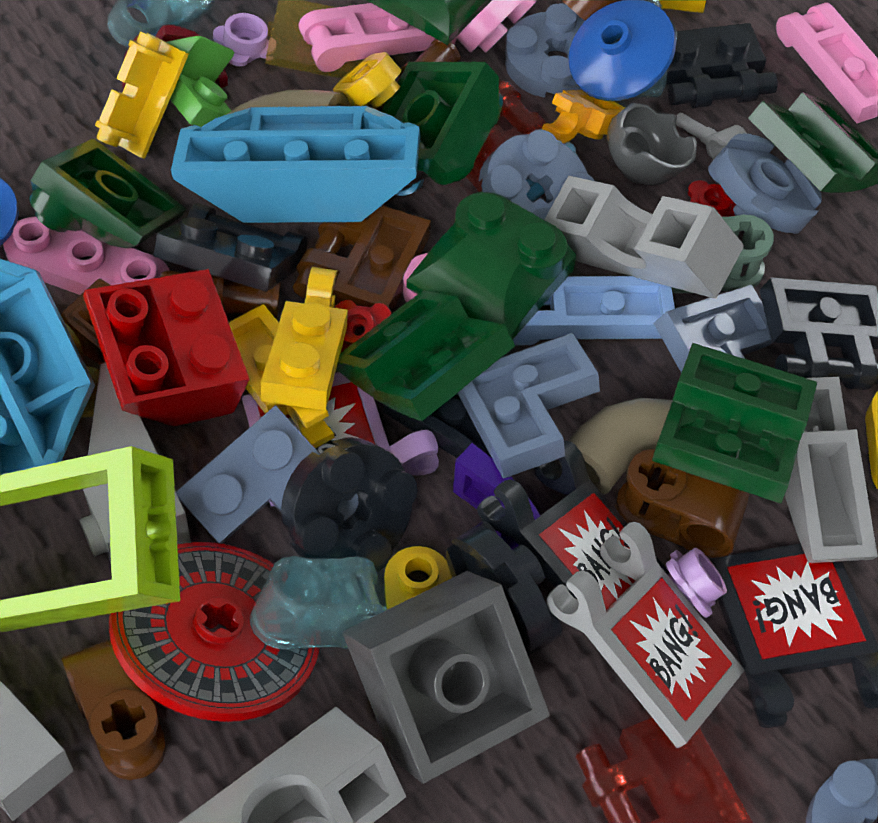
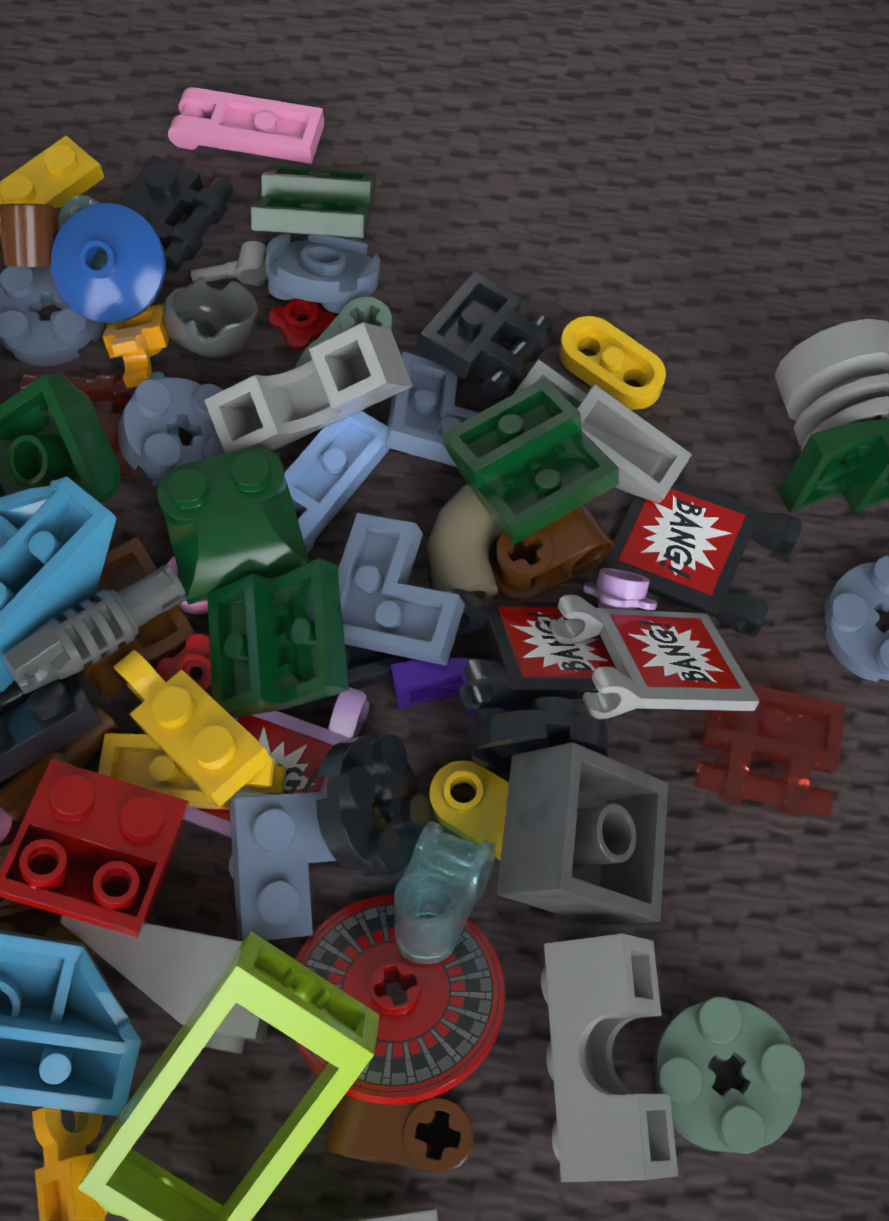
camera: 50 degrees left, 10 degrees up
(300, 224) = (95, 628): none -> dark grey hinge

